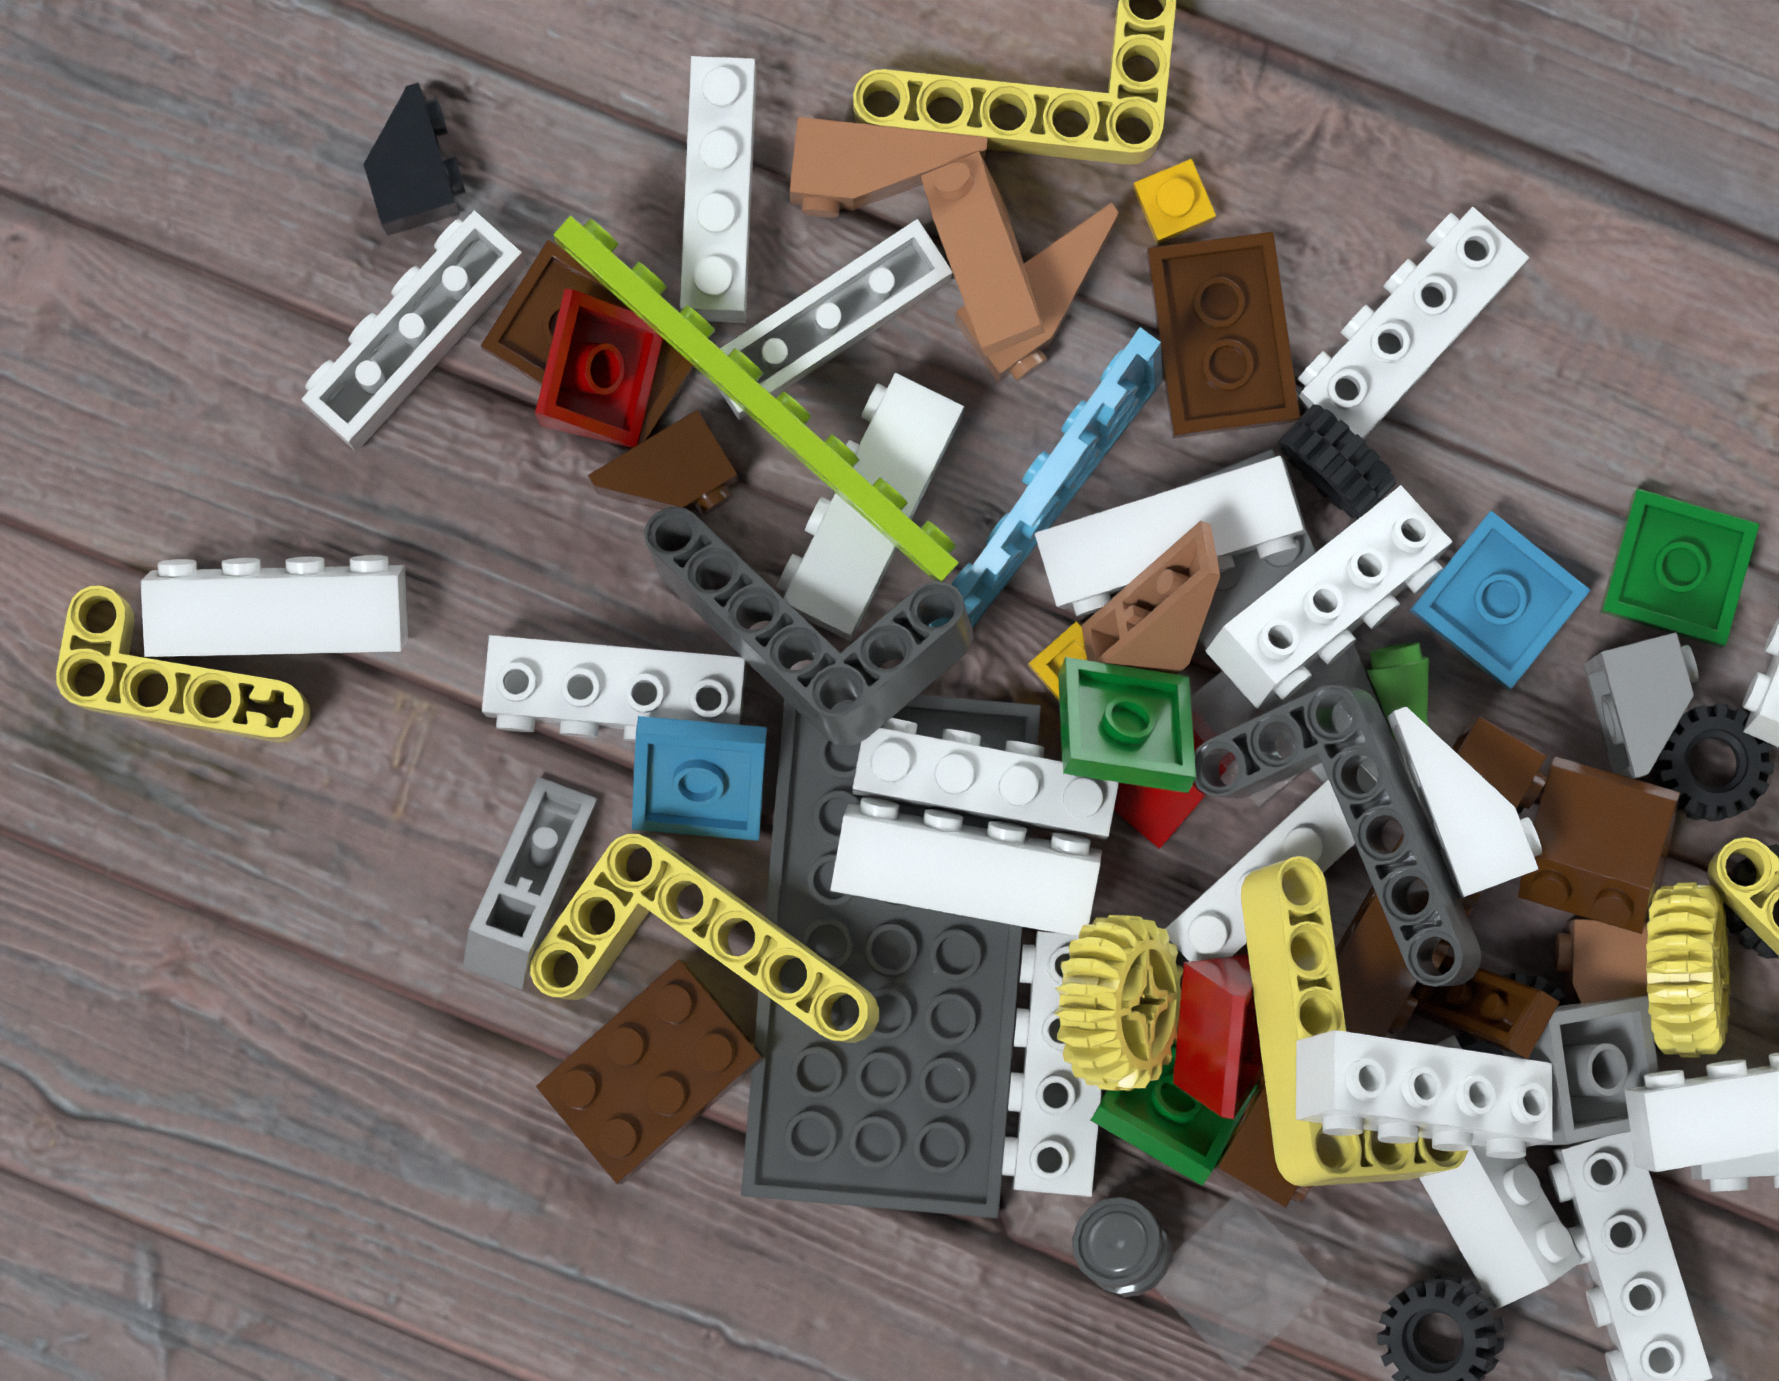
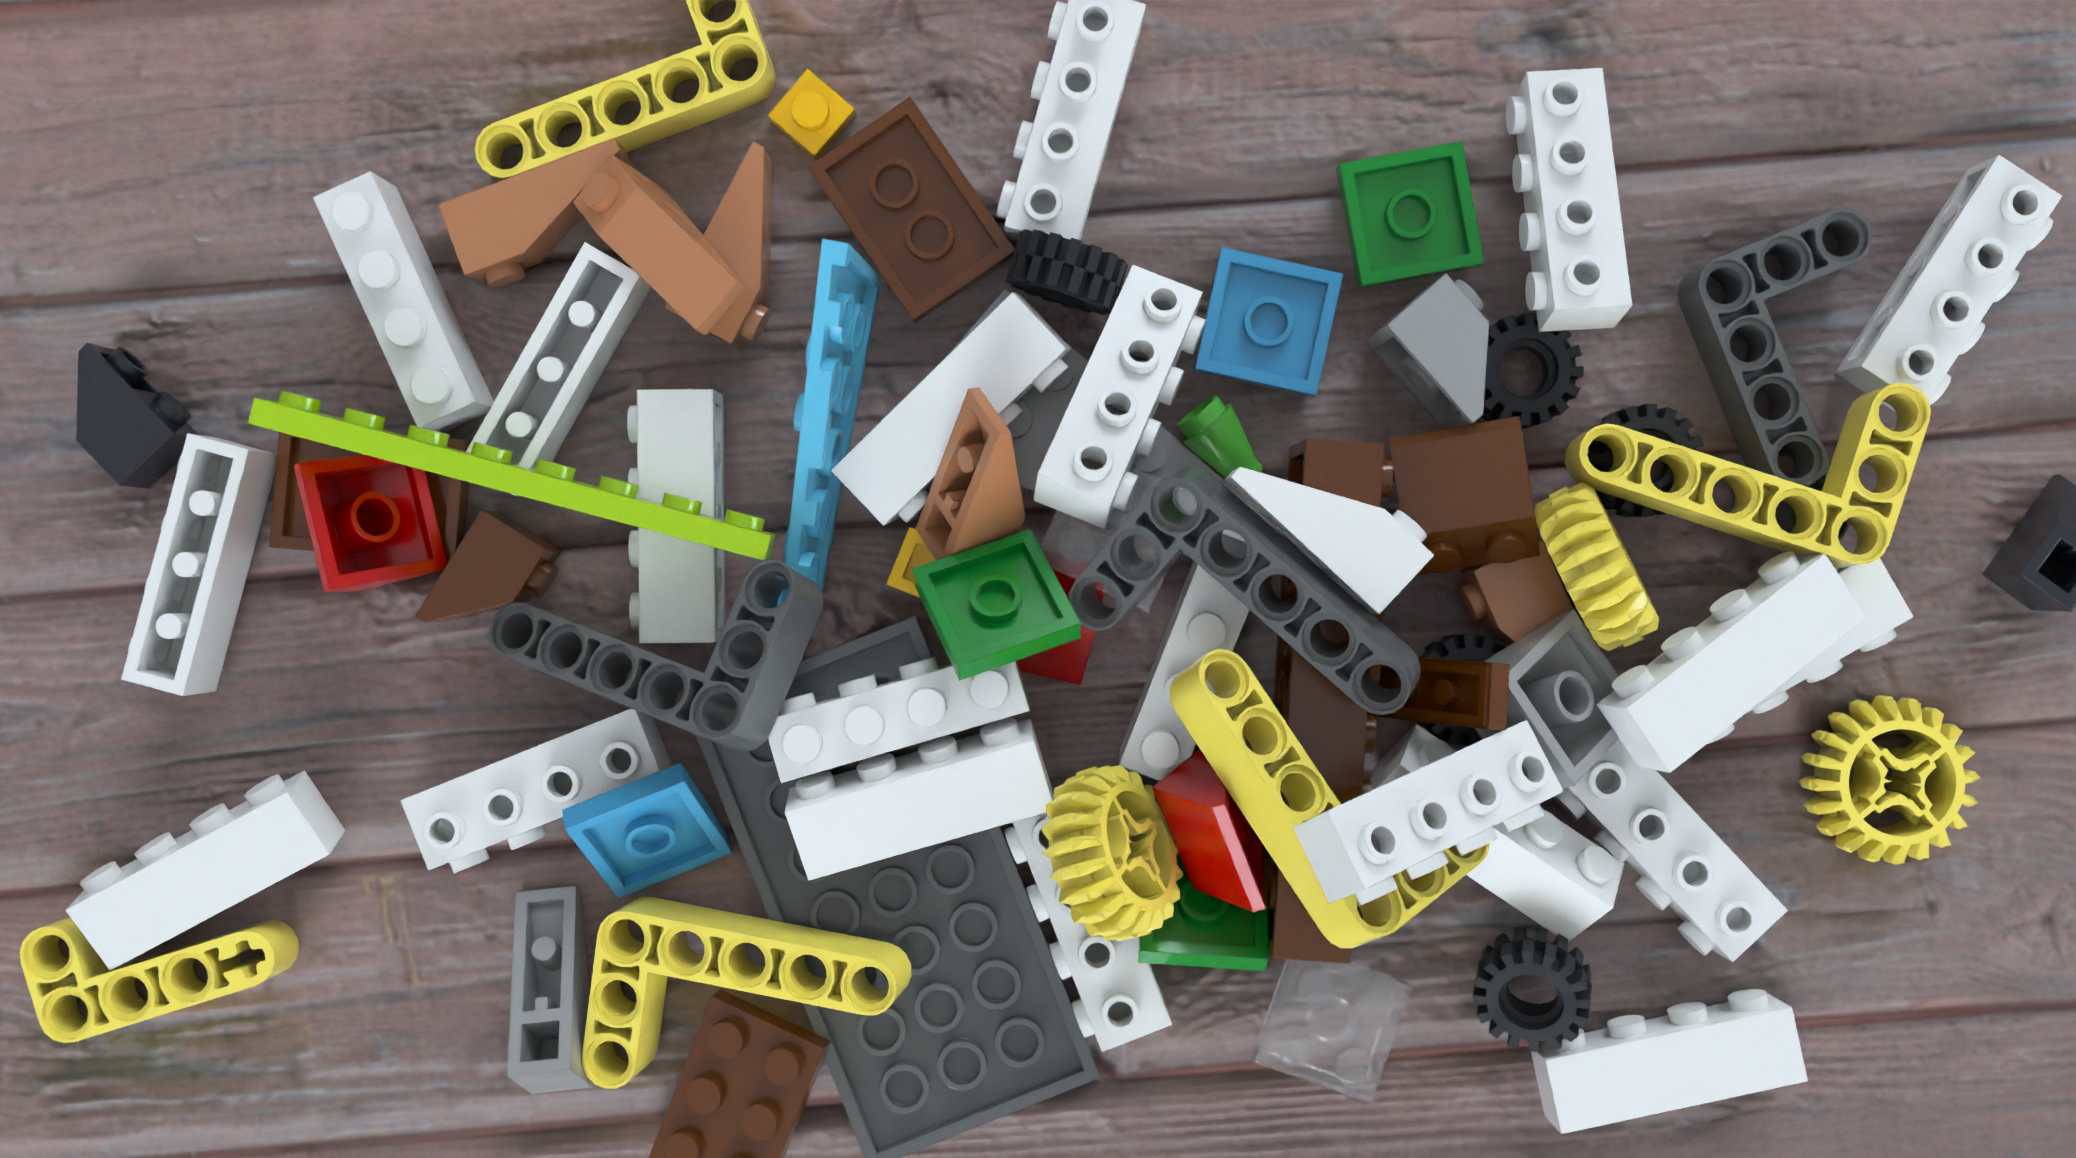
camera: 20 degrees left, 5 degrees up
(1122, 1247) = (1219, 1049): dark grey wheel -> none

